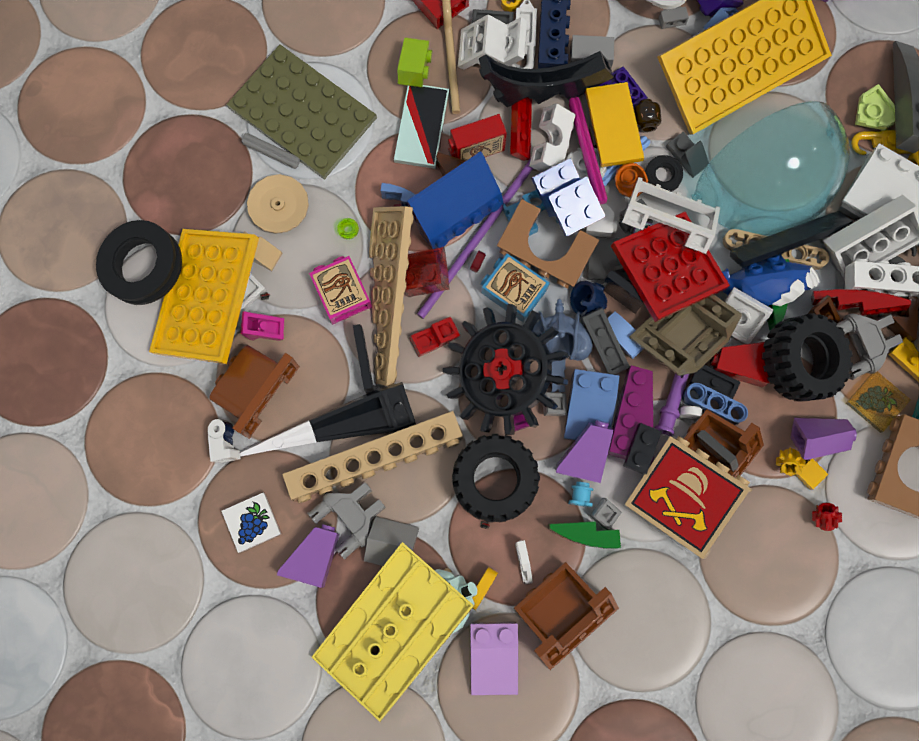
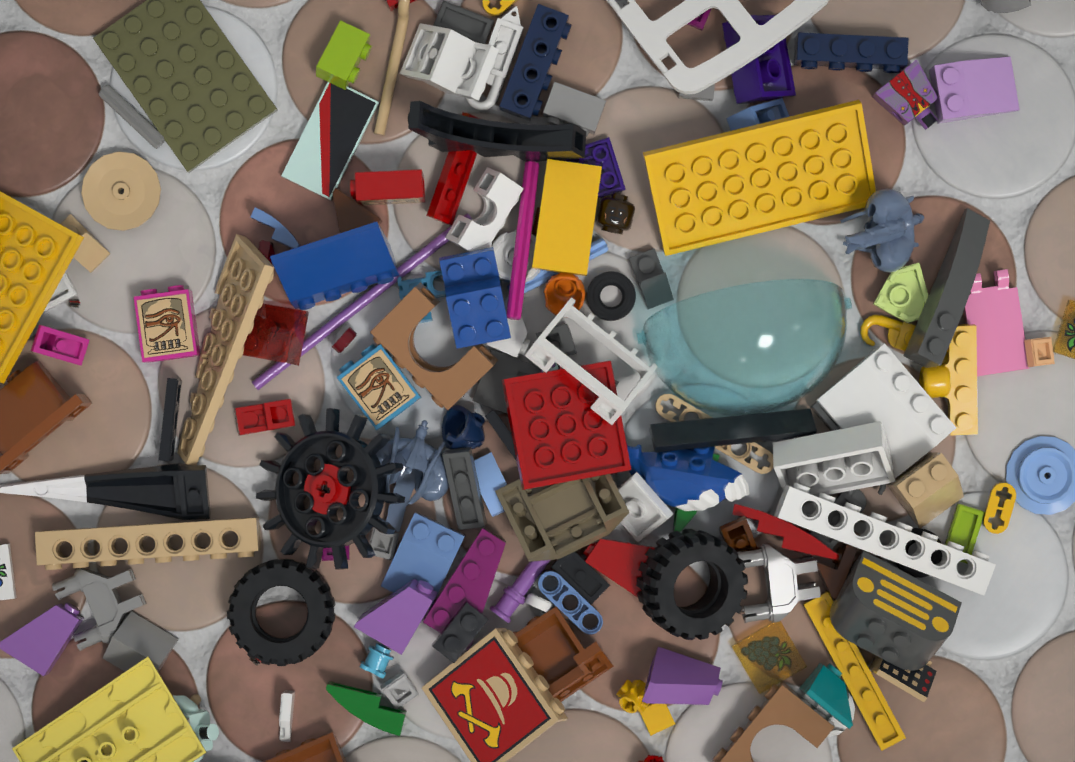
camera: 10 degrees right, 10 degrees up
(348, 222) = (190, 248): clear neon green plate -> none
(484, 585) = (231, 729): yellow beam -> none
(718, 450) = (550, 659): dark grey tile -> none
(847, 65) = (889, 232): none -> sand blue hair

